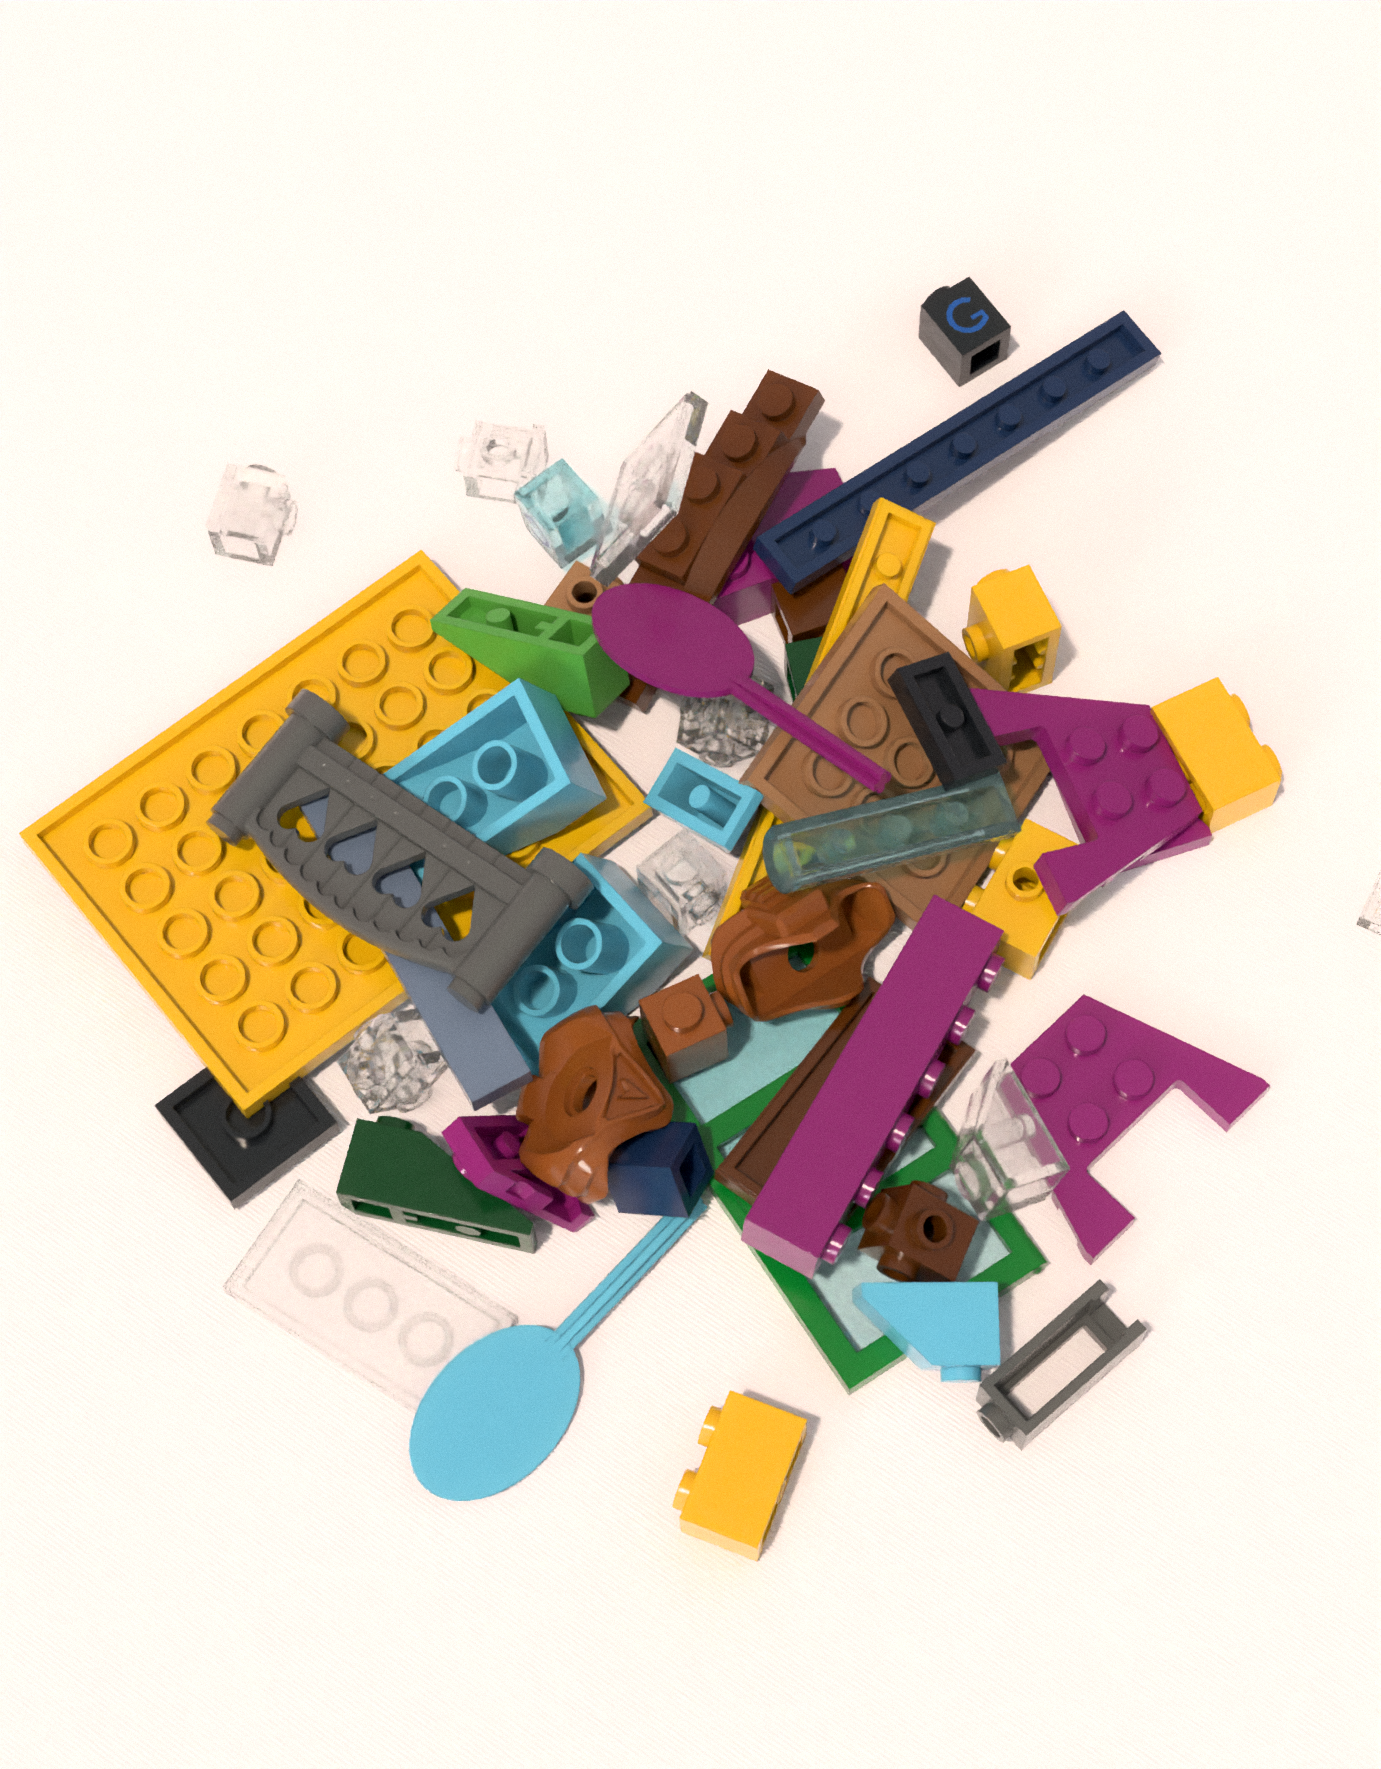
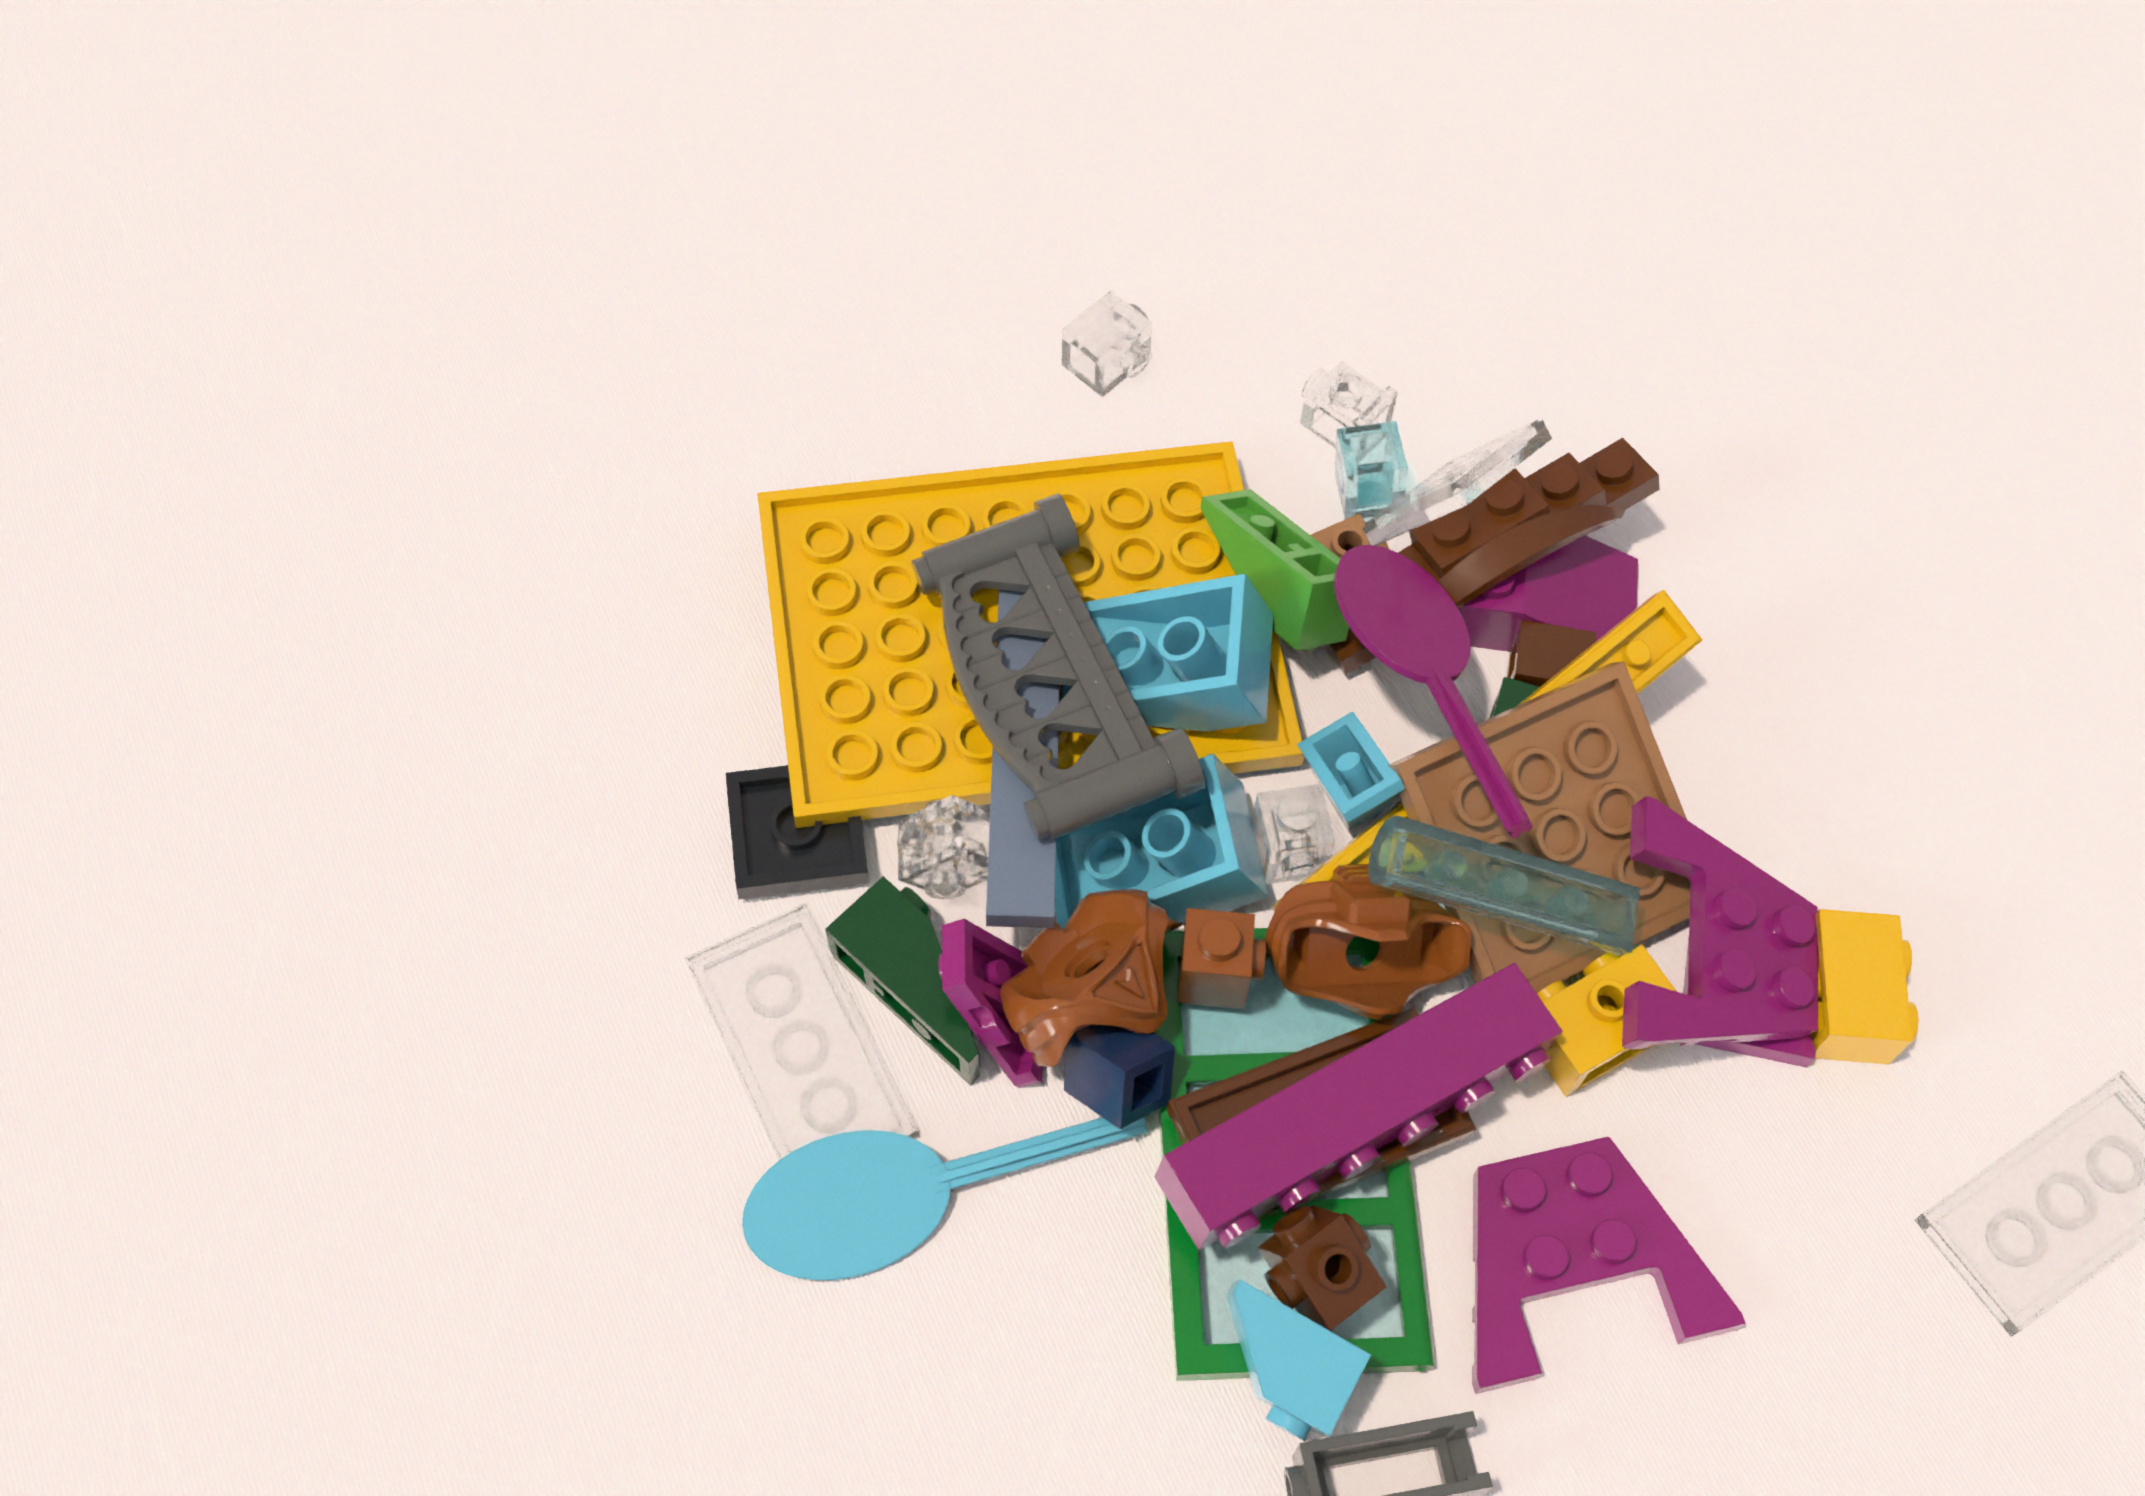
camera: 25 degrees right, 5 degrees down
(722, 728) = (1405, 716): clear brick -> none
(740, 1475) = (1029, 1394): yellow brick -> none
(947, 721) = (1614, 814): black plate -> none
(959, 448) = (1764, 593): dark blue plate -> none
(963, 331) = (1821, 501): black brick -> none
(1004, 1148) = (1452, 1236): clear slope -> none
(1012, 630) = (1724, 771): yellow brick -> none

